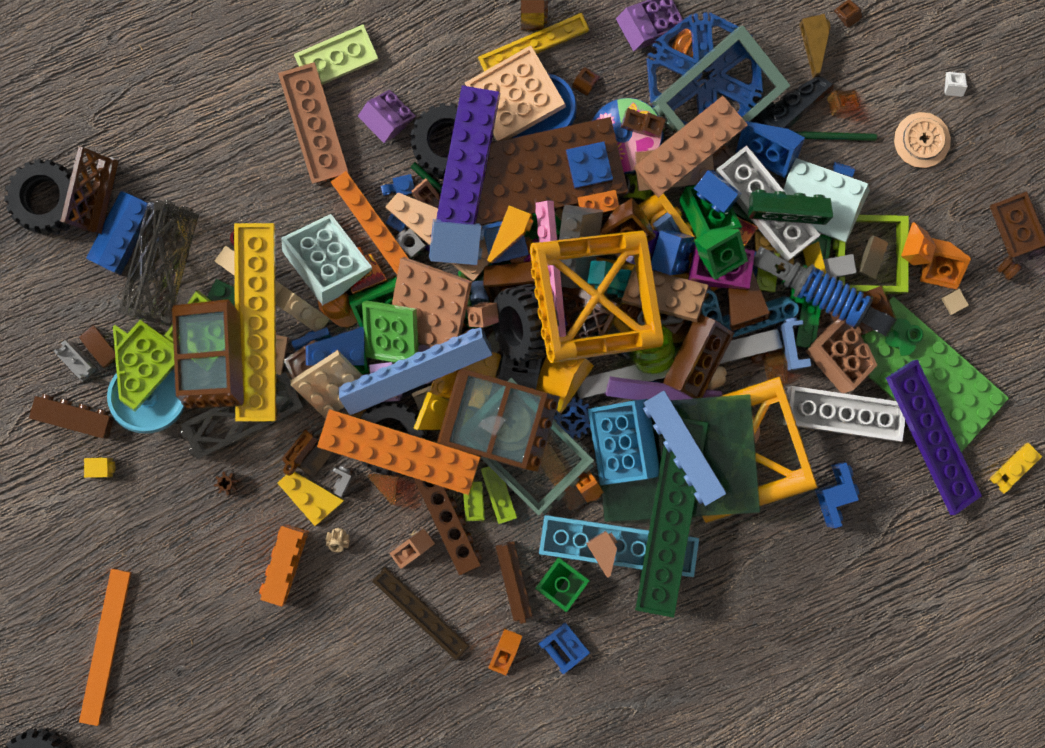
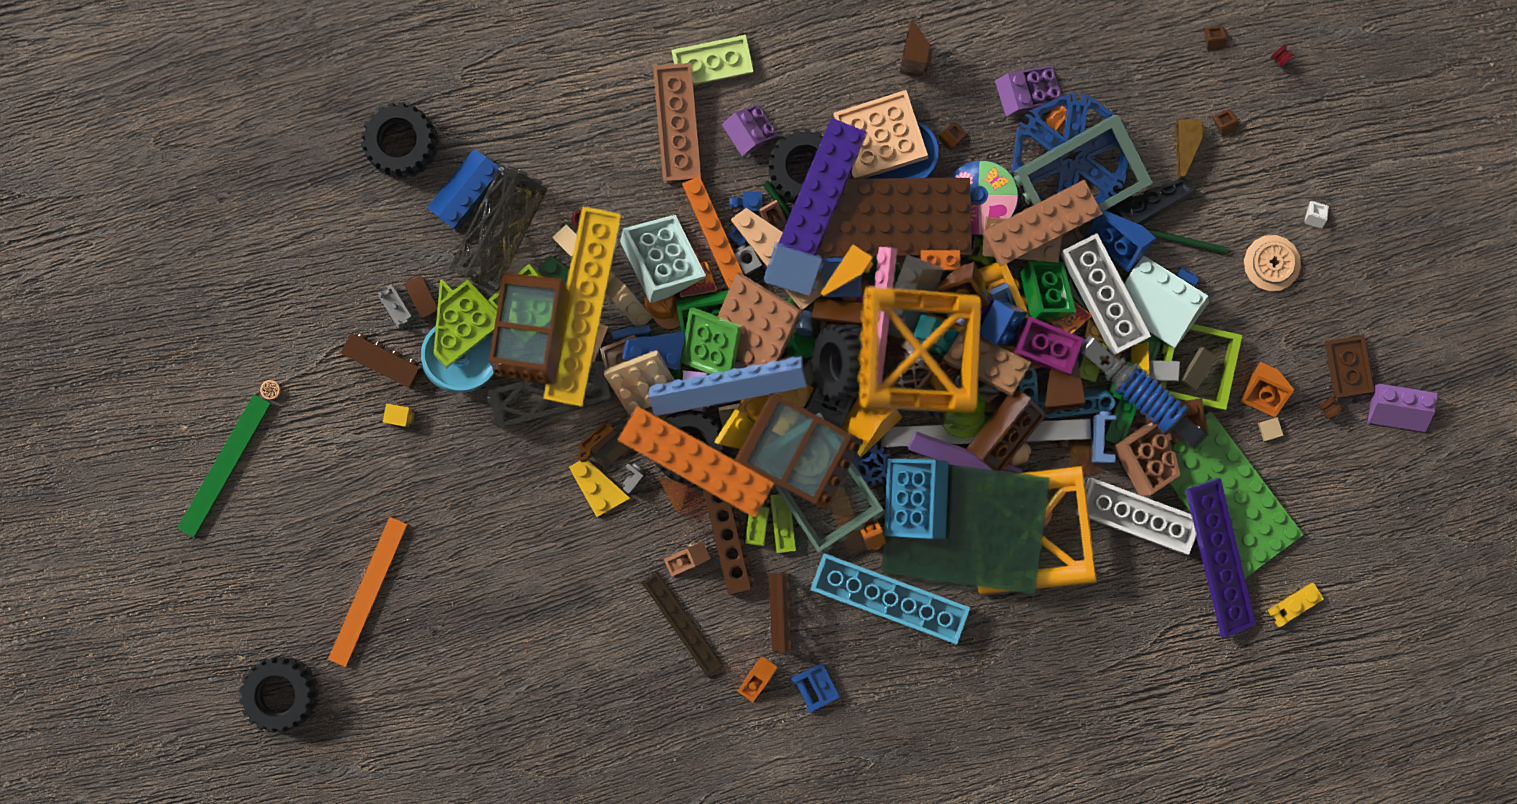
camera: 10 degrees right, 0 degrees up
(99, 193) = (453, 145): reddish brown fence -> none
(231, 486) = (522, 452): reddish brown gear -> none
(283, 565) = (559, 548): orange wedge -> none
(337, 540) = (616, 535): tan gear -> none
(482, 314) = (805, 345): nougat brick -> none
(492, 424) = (792, 453): clear tile -> none
(539, 40) = (914, 86): yellow tile -> none
(562, 584) = (827, 624): green slope -> none
(589, 165) = (939, 220): blue plate -> none
(604, 551) = (874, 600): nougat slope -> none
(641, 123) = (1000, 191): reddish brown slope -> none
(668, 533) = (947, 580): dark green plate -> none
(684, 447) = (976, 520): medium blue brick -> none
(717, 191) = (1059, 273): blue brick -> none
(721, 251) = (1050, 332): green slope -> none
(790, 208) = (1126, 304): dark green slope -> none
(837, 494) = (1114, 593): blue bracket -> none
(843, 102) = (1202, 209): clear orange slope -> none
(901, 336) = (1210, 453): green plate -> none
(918, 246) = (1245, 367): orange slope -> none

